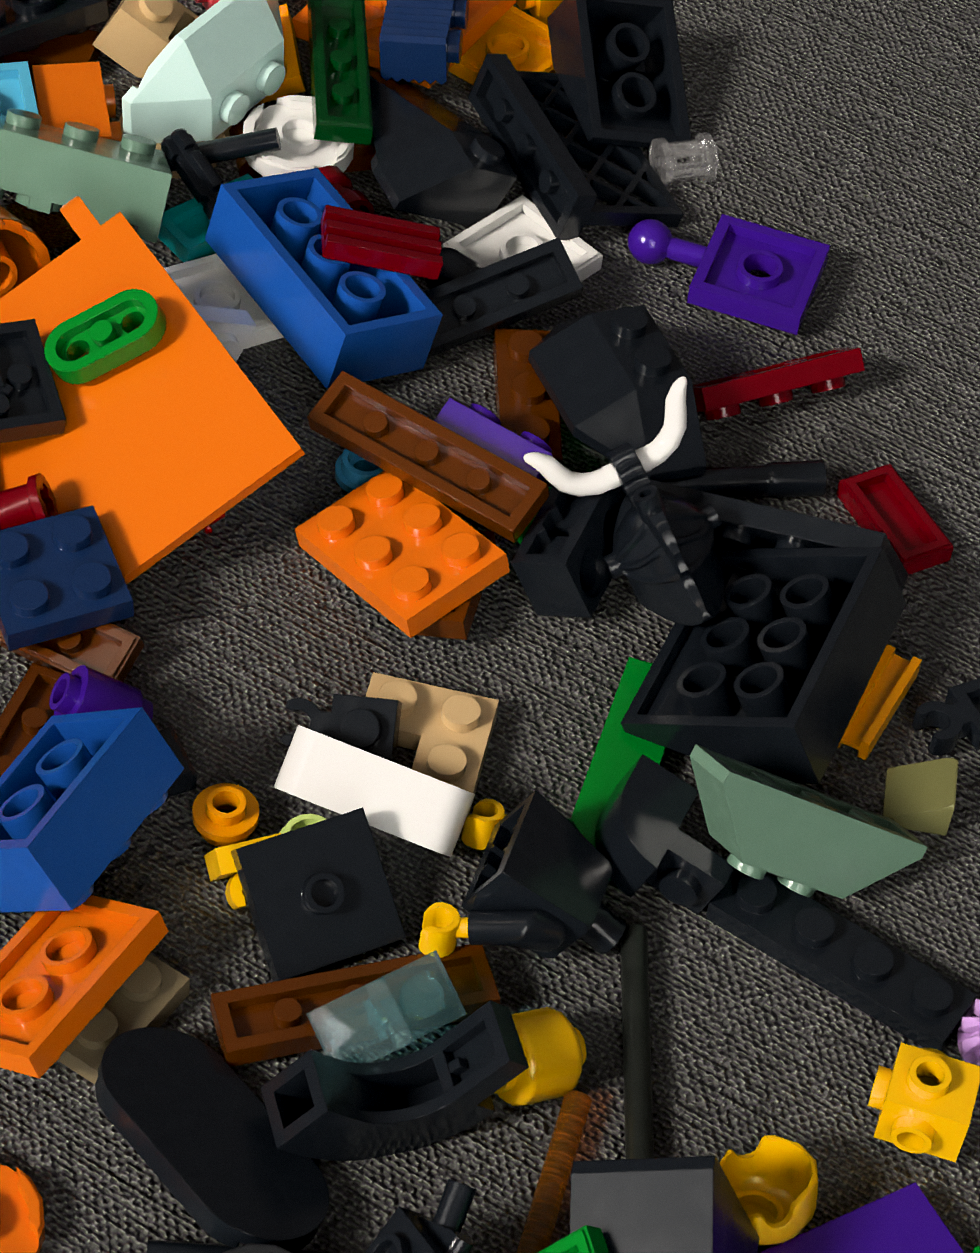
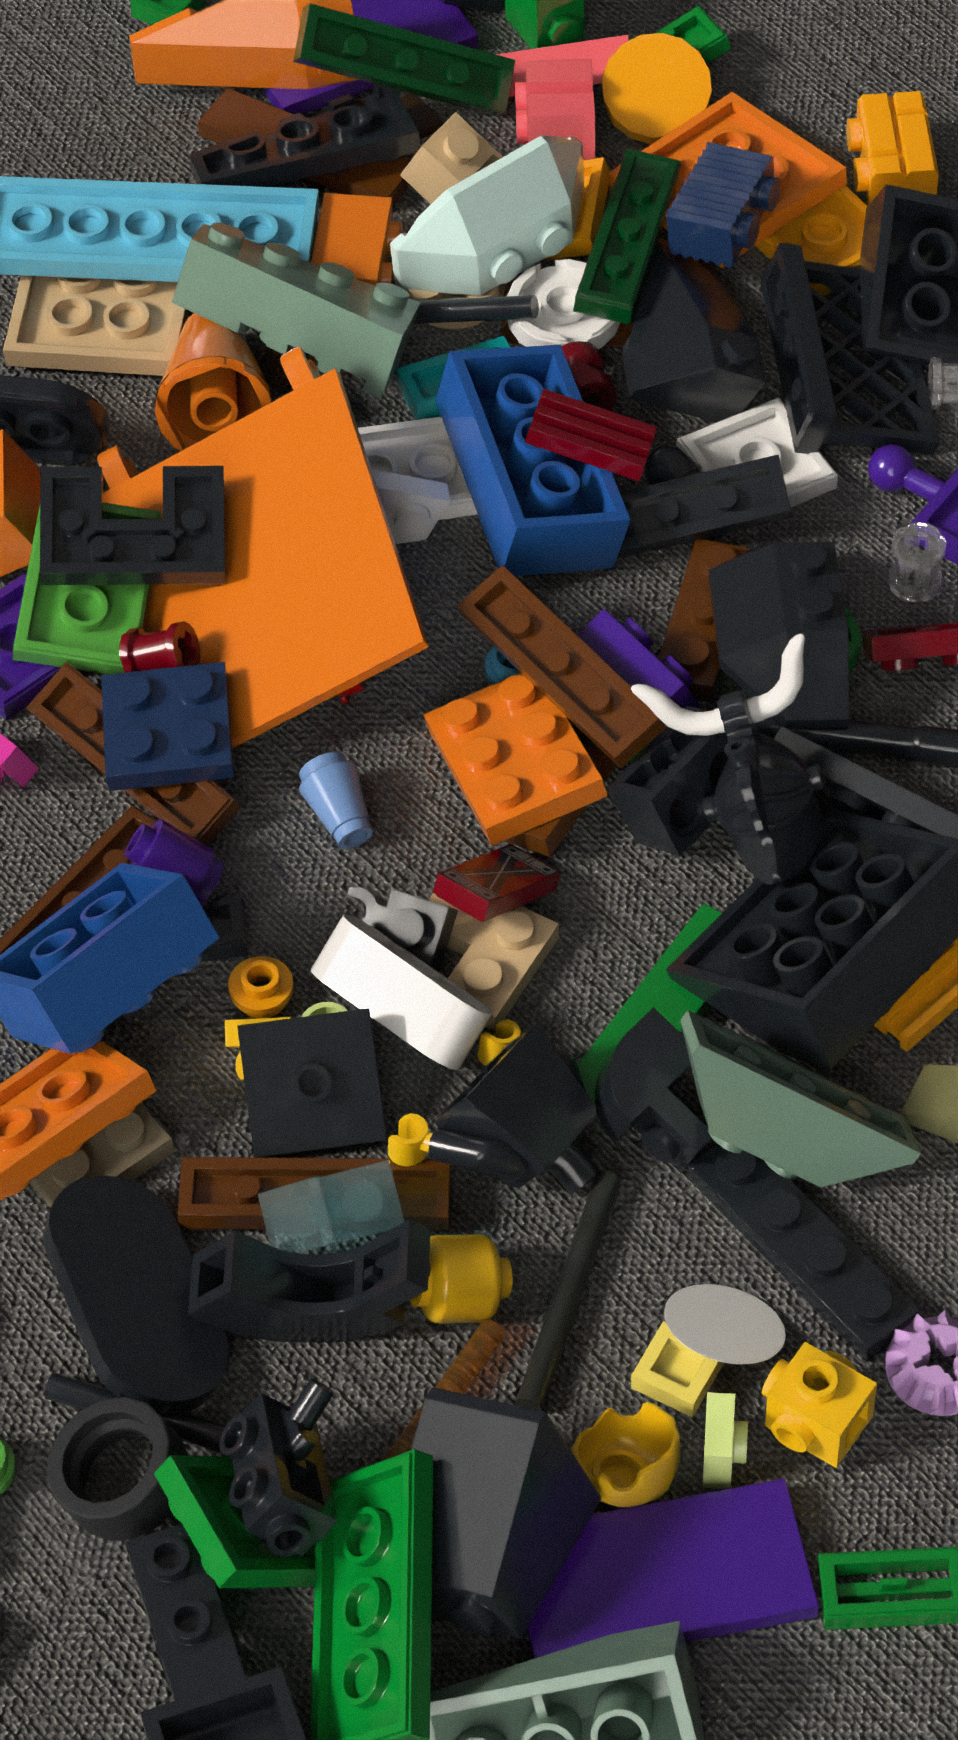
camera: 25 degrees right, 5 degrees up
(106, 336) = (283, 492): green plate -> none
(193, 168) = (441, 326): black axle -> none
(238, 620) = (337, 798): none -> medium blue cone
(429, 671) = (496, 882): none -> tile
(716, 319) = (927, 572): none -> clear bush
(774, 1099) = (674, 1373): none -> light yellow plate
(802, 1046) = (724, 1324): none -> white sticker
(844, 1158) = (723, 1441): none -> yellowish green plate

